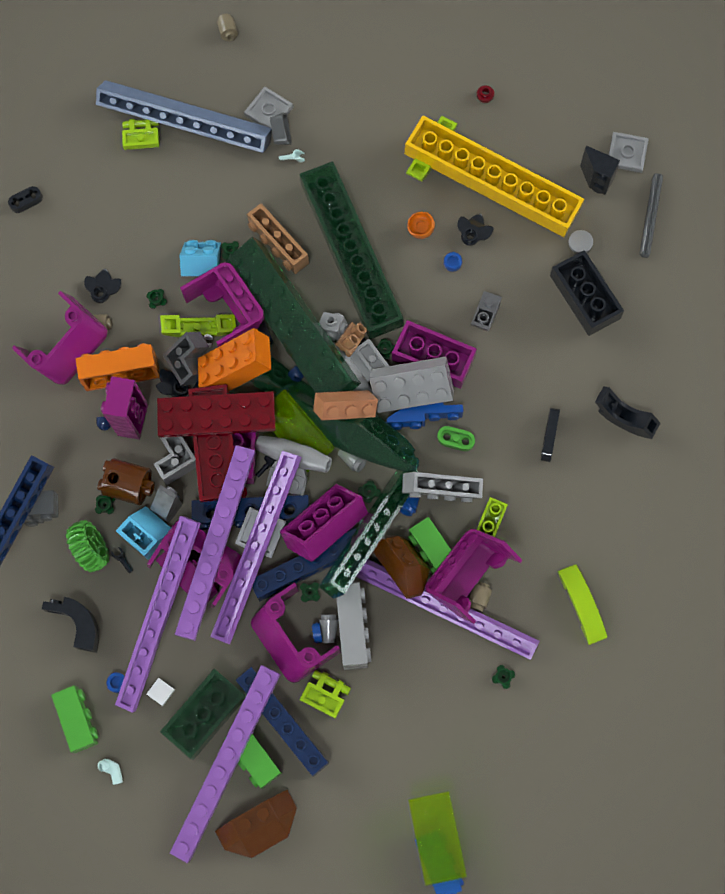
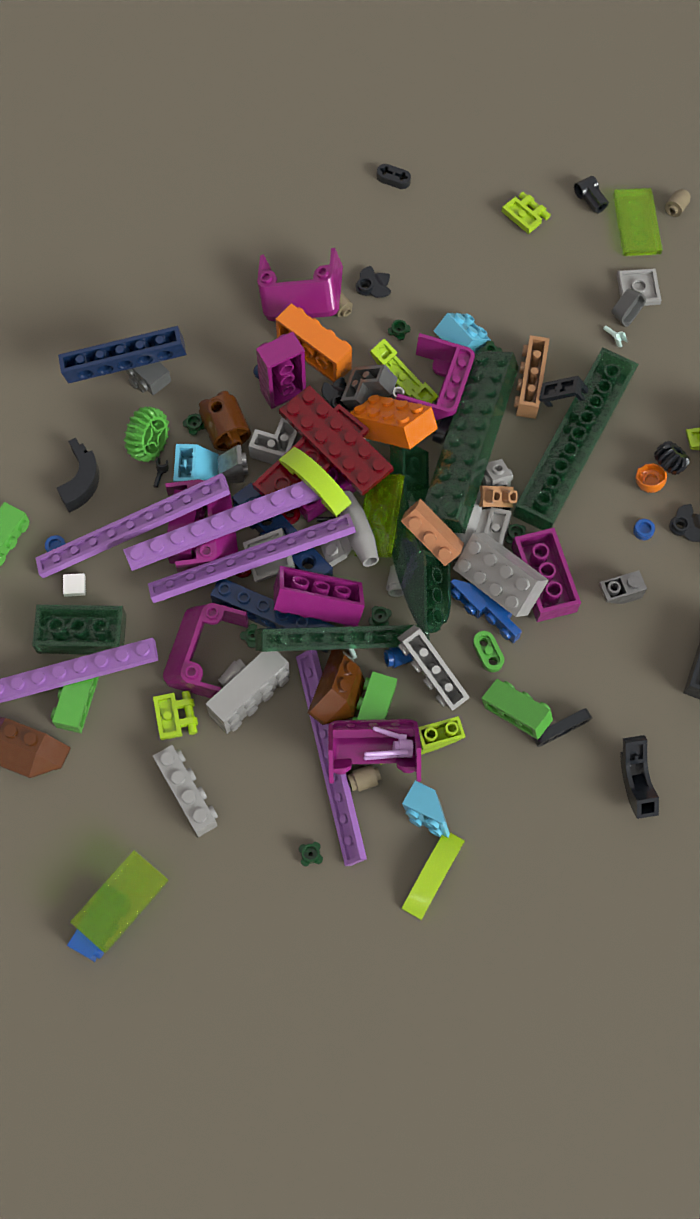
camera: 45 degrees right, 5 degrees down
(163, 77) = (589, 190): none -> black piece
(183, 116) = (570, 230): sand blue brick -> none
(216, 66) = (637, 222): none -> clear neon green tile
(237, 453) = (316, 479): none -> lime slope
(287, 728) = (120, 709): dark blue brick -> none
(295, 374) = (426, 478): dark blue hinge -> none
(310, 228) = (562, 389): none -> black hinge
(317, 633) = (221, 667): blue tile -> none
(391, 730) = (187, 794): none -> light grey brick
(419, 199) = (671, 458): none -> black gear
(484, 555) = (400, 749): none -> lavender plant
(515, 452) = (517, 708): none -> bright green brick
(539, 571) = (425, 809): none -> medium azure slope

